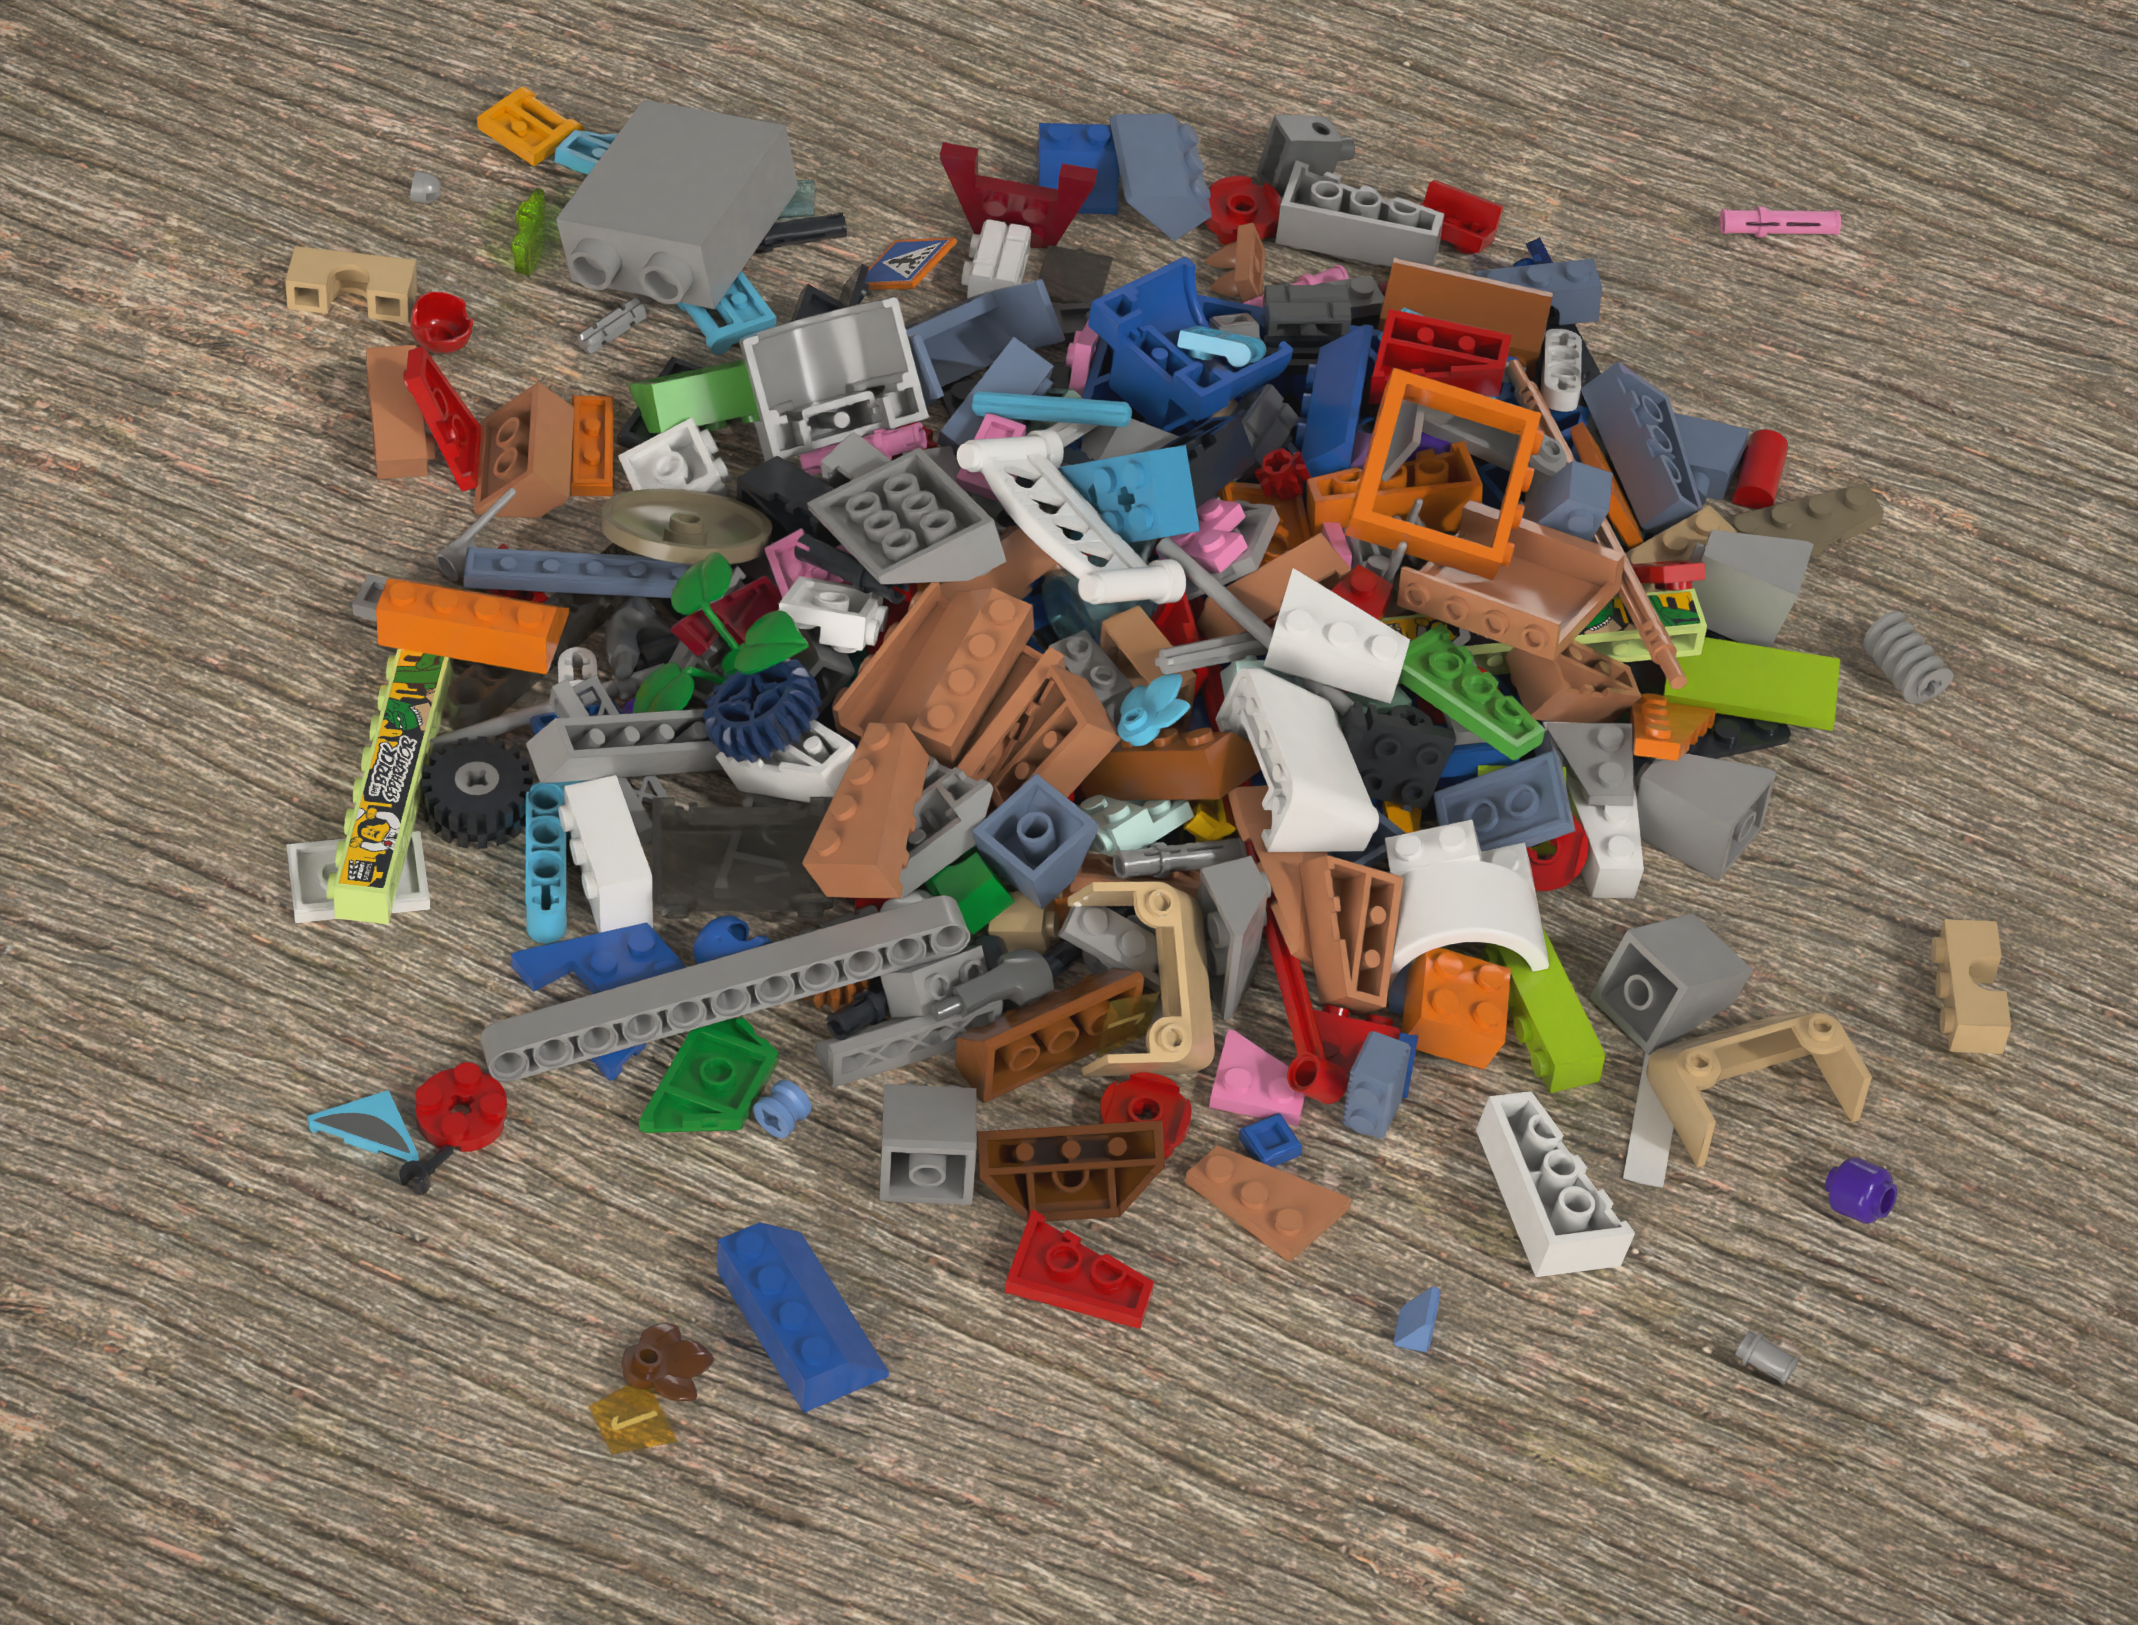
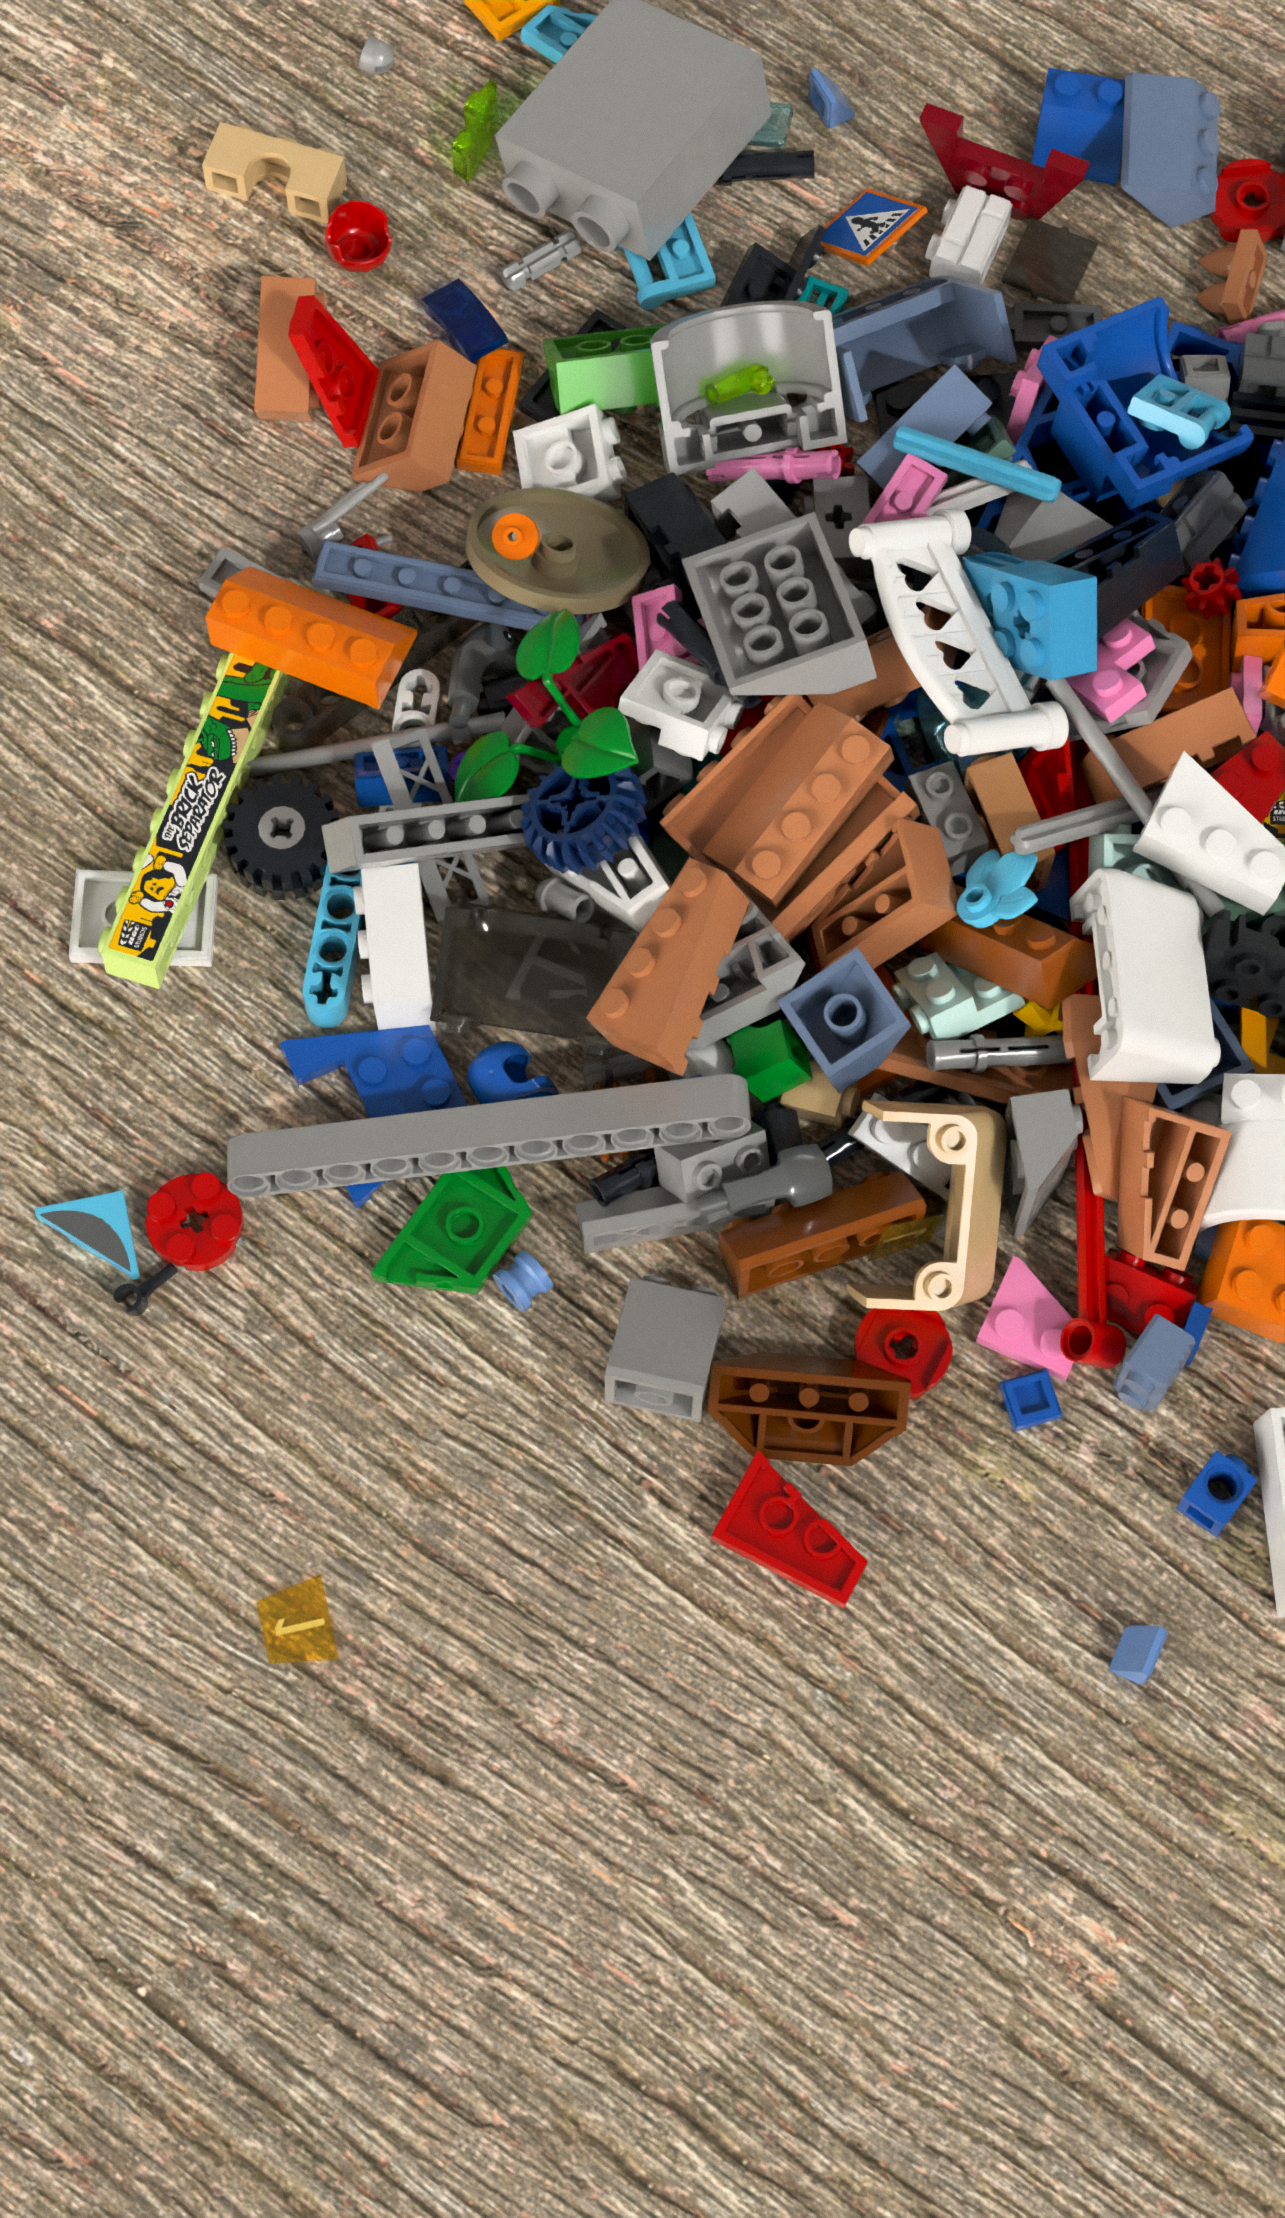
camera: 15 degrees right, 20 degrees up
(555, 373) = (465, 320): none -> clear blue slope
(648, 522) = (527, 536): none -> orange tile
(666, 1362) = (351, 1567): reddish brown plate -> none
(745, 795) = (556, 897): none -> light grey pin
(797, 1314) = (493, 1534): blue slope -> none
(821, 384) = (751, 378): none -> clear neon green arm
(844, 176) = (828, 100): none -> medium blue slope
(1267, 1201) = (1011, 1473): nougat wing -> none
(1447, 1196) = (1207, 1510): none -> blue brick

